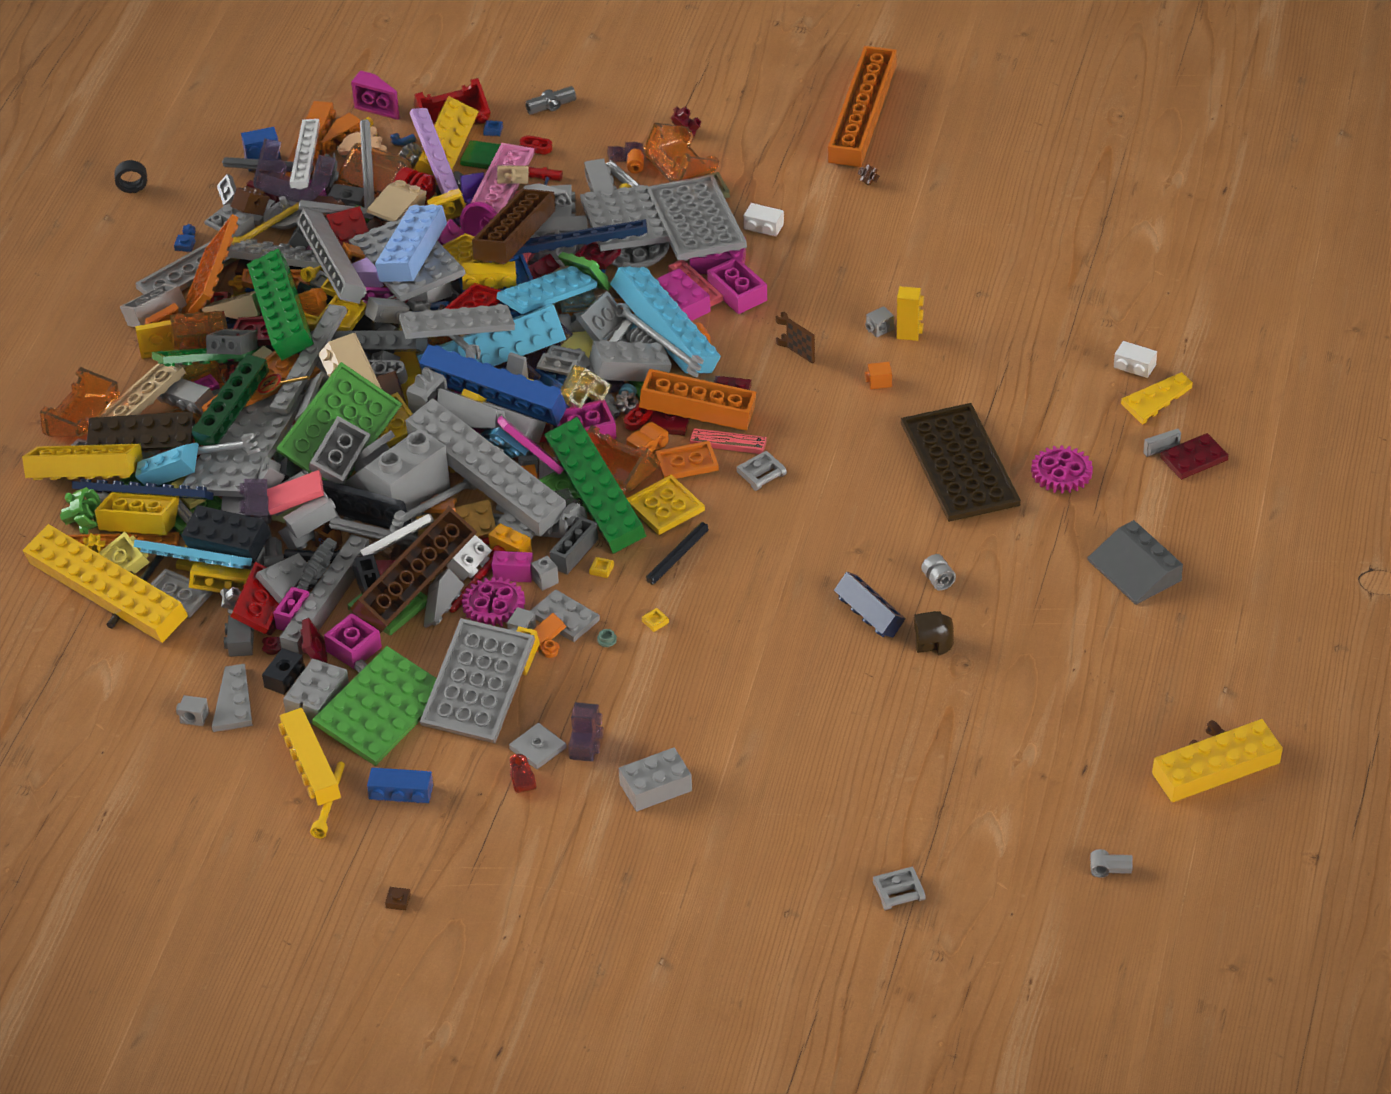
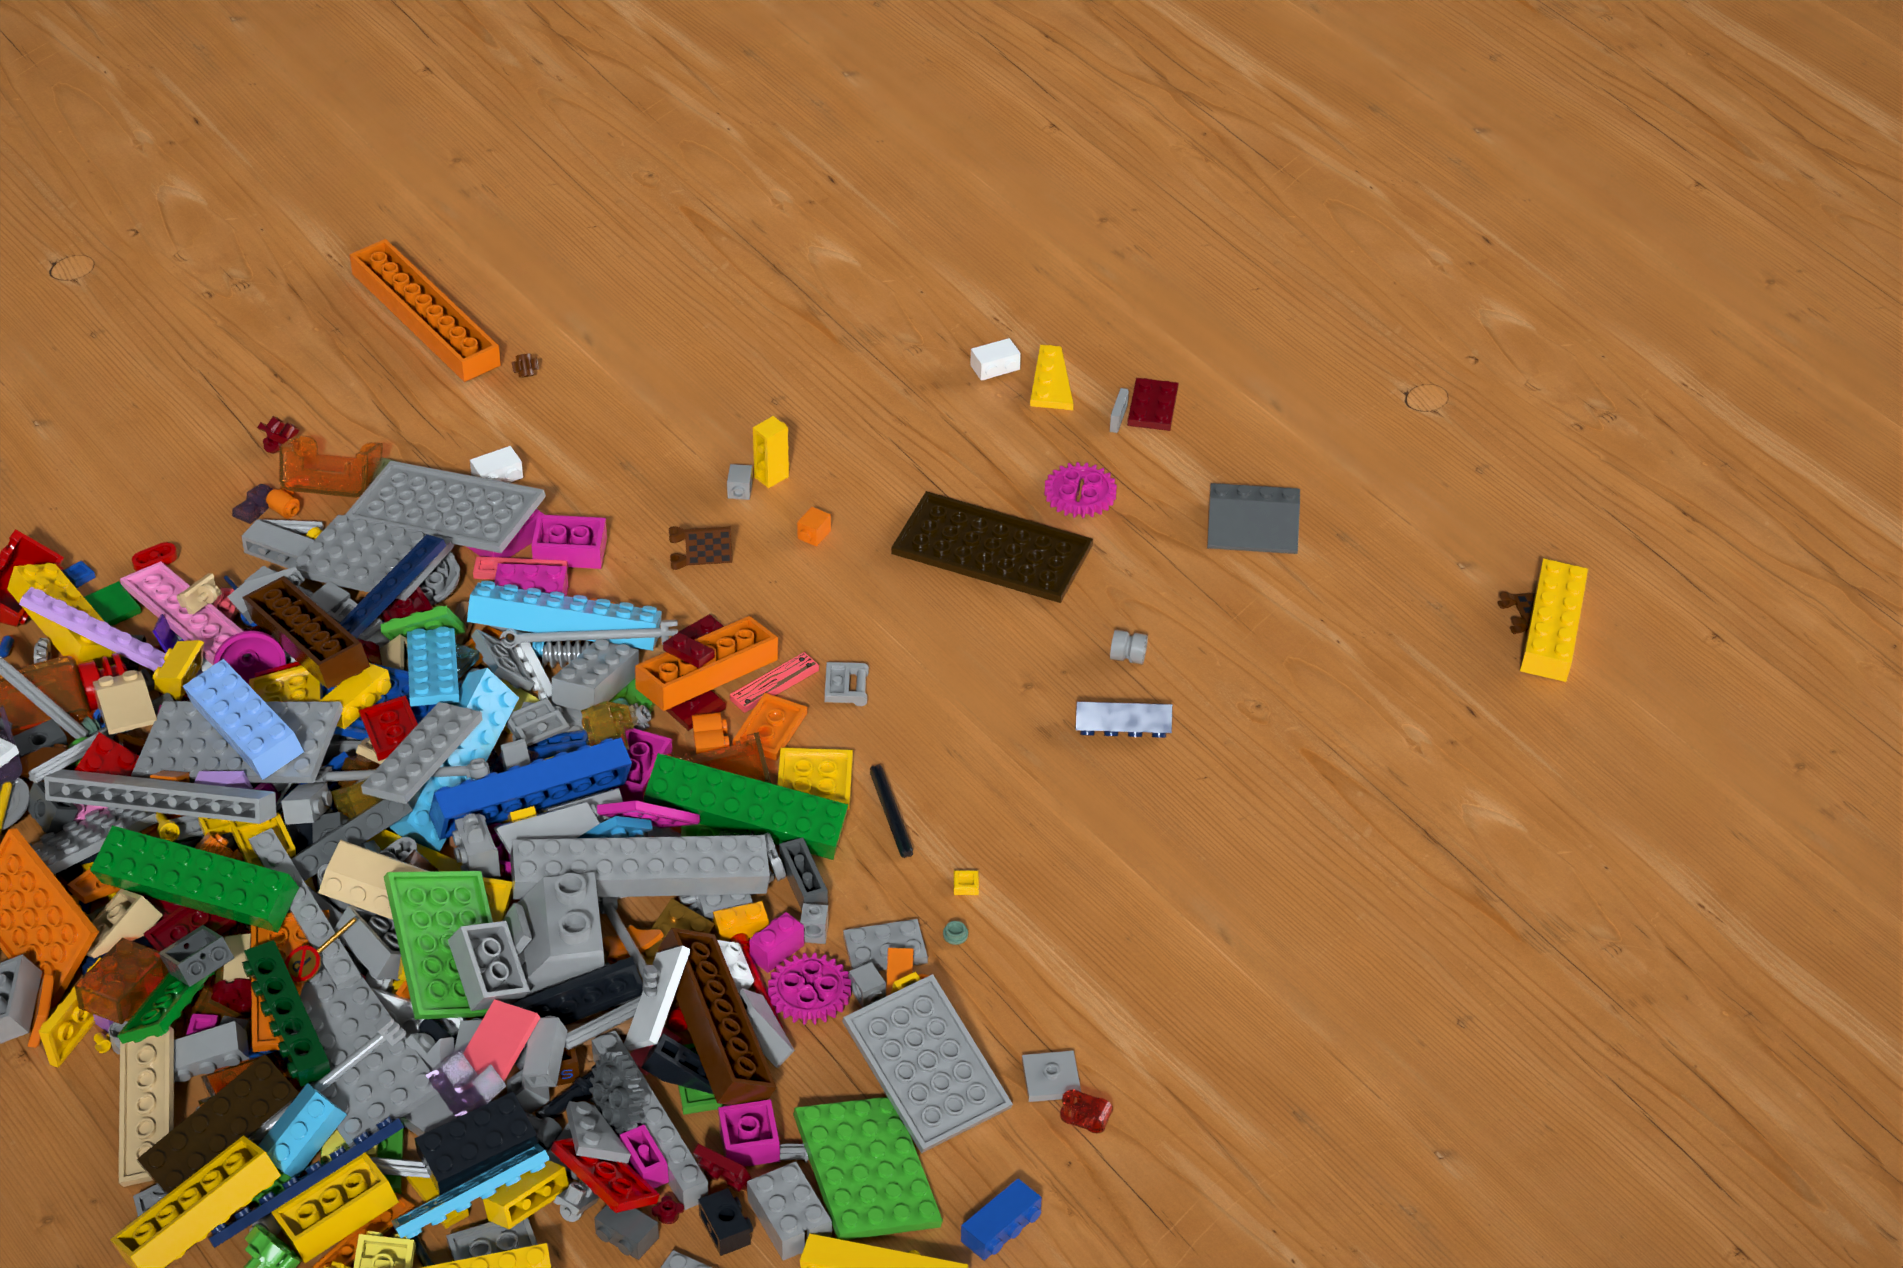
camera: 55 degrees left, 0 degrees up
(88, 399) = (91, 1160): clear orange windscreen -> none
(544, 172) = (218, 571): red pin -> none
(550, 100) = (101, 507): dark grey piece -> none
(585, 732) = (1080, 1026): brick -> none
(601, 567) = (846, 878): yellow tile -> none
(637, 418) = (663, 722): red plate -> none
(655, 779) = (1198, 1010): light grey brick -> none
(687, 381) = (688, 650): none -> dark red plate
(898, 882) = (1501, 919): light grey plate -> none
(933, 632) = (1211, 697): dark brown brick -> none
(1103, 863) = (1611, 764): light grey piece -> none

